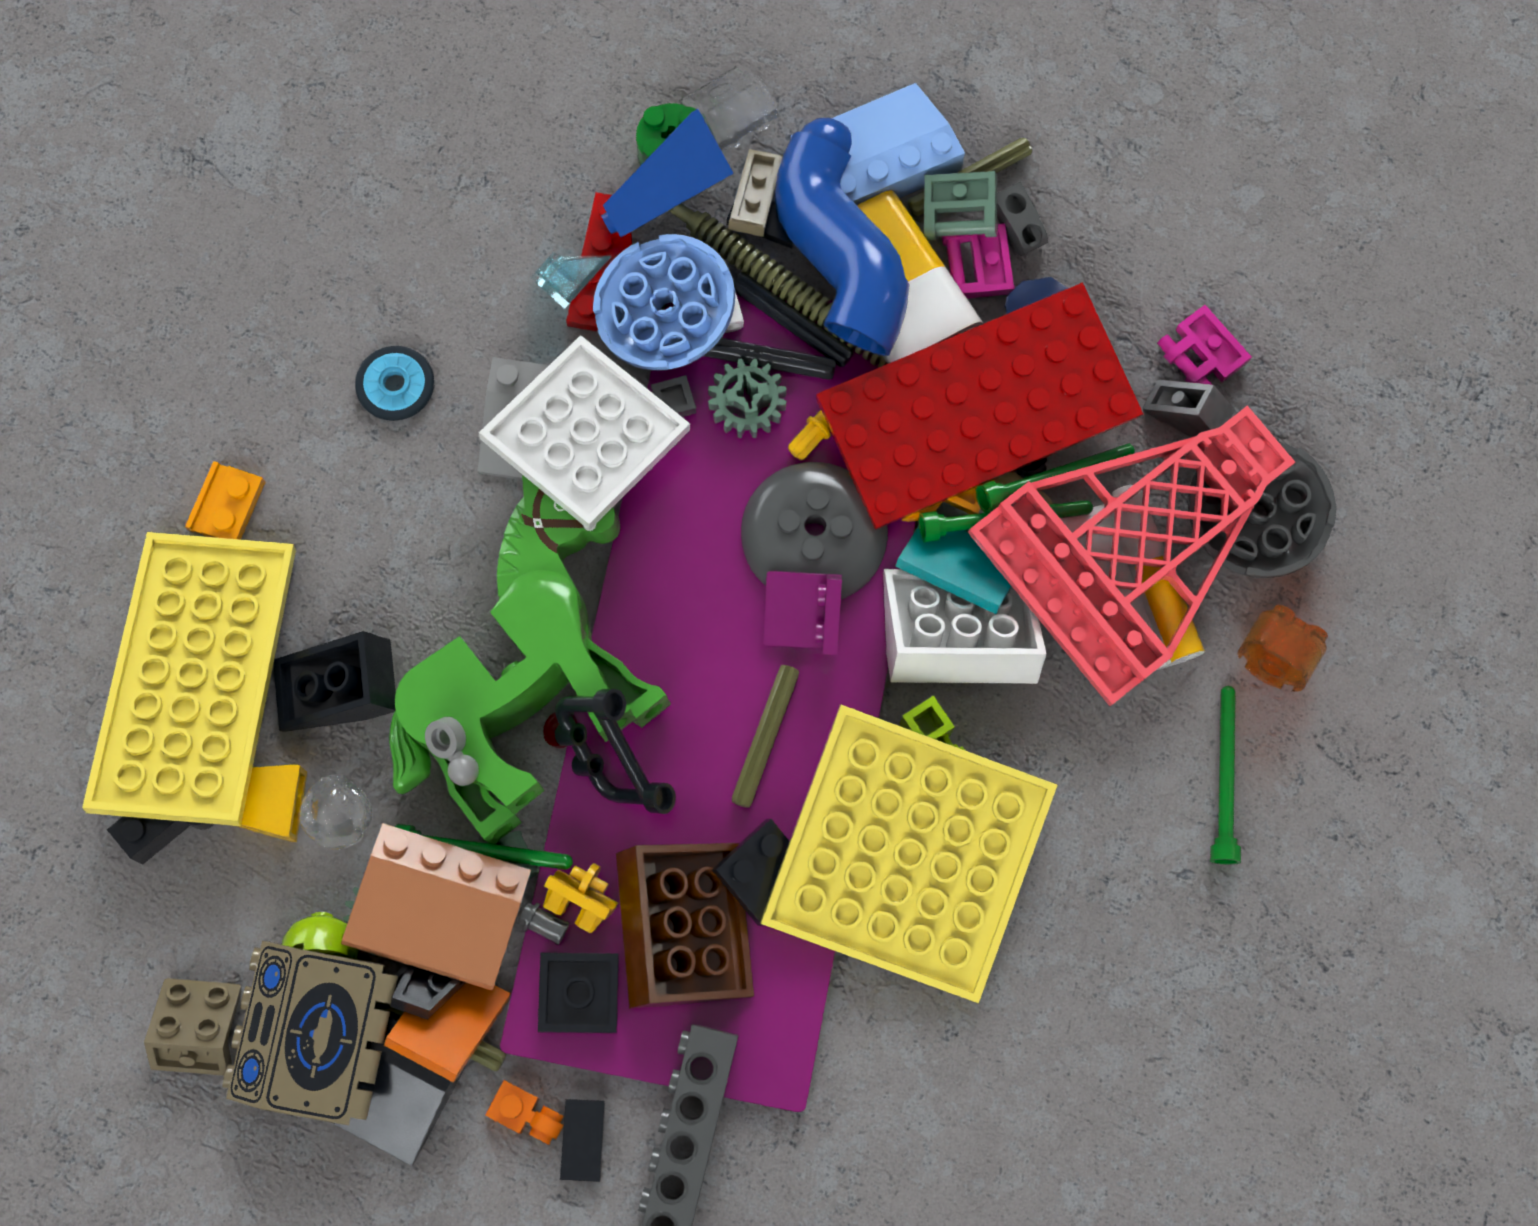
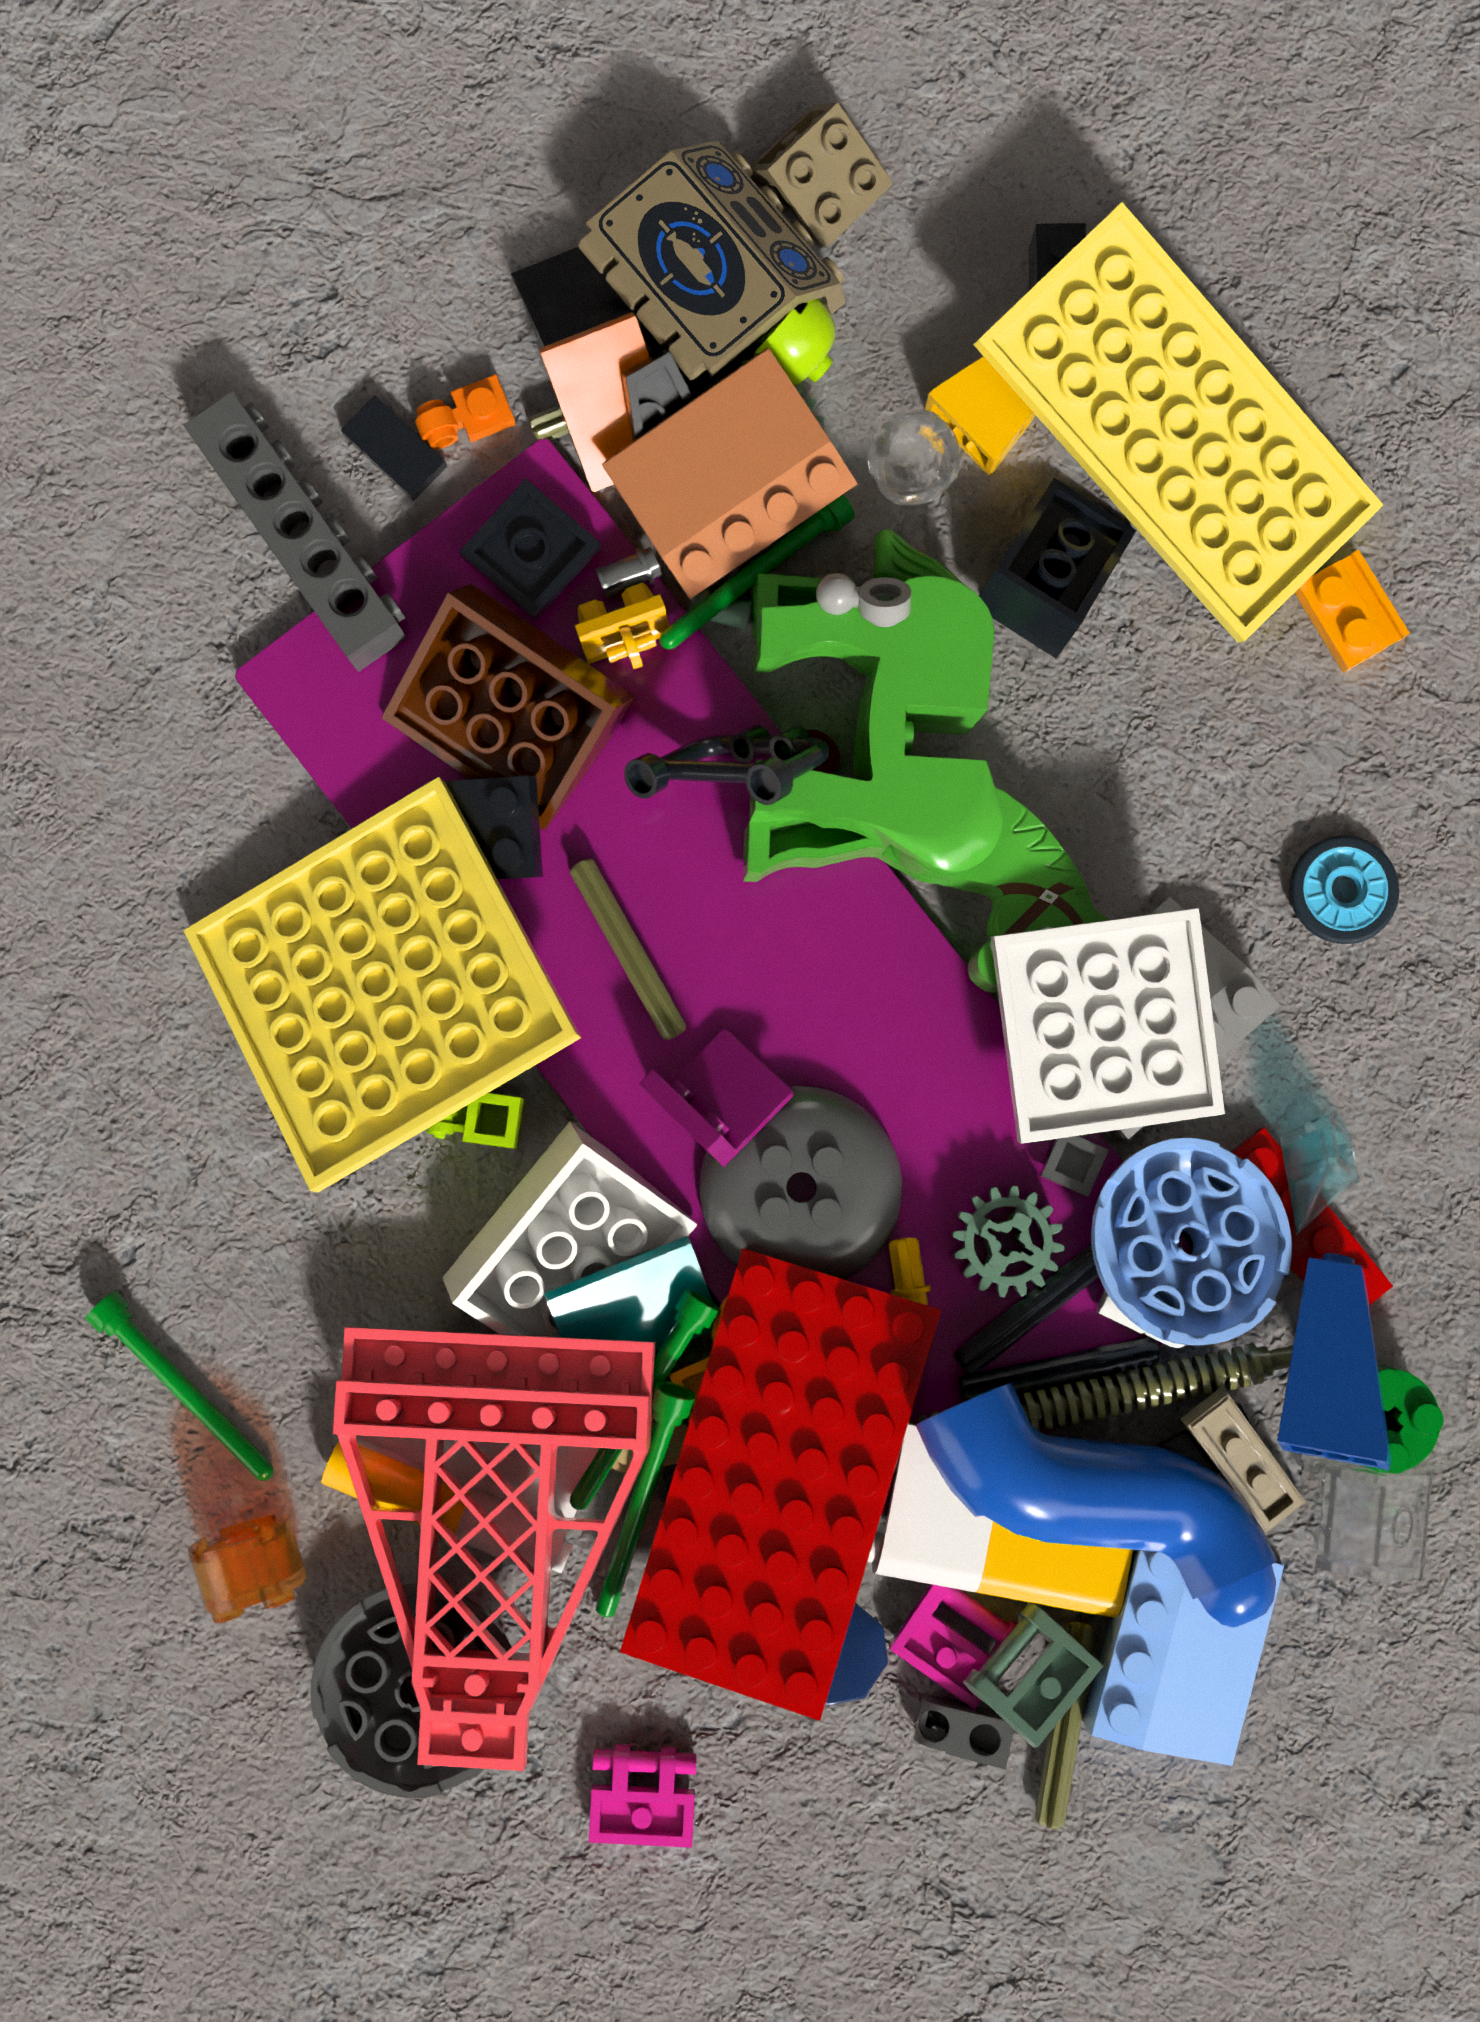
camera: 135 degrees right, 10 degrees up
(1188, 406) = (592, 1718): flat silver slope -> none

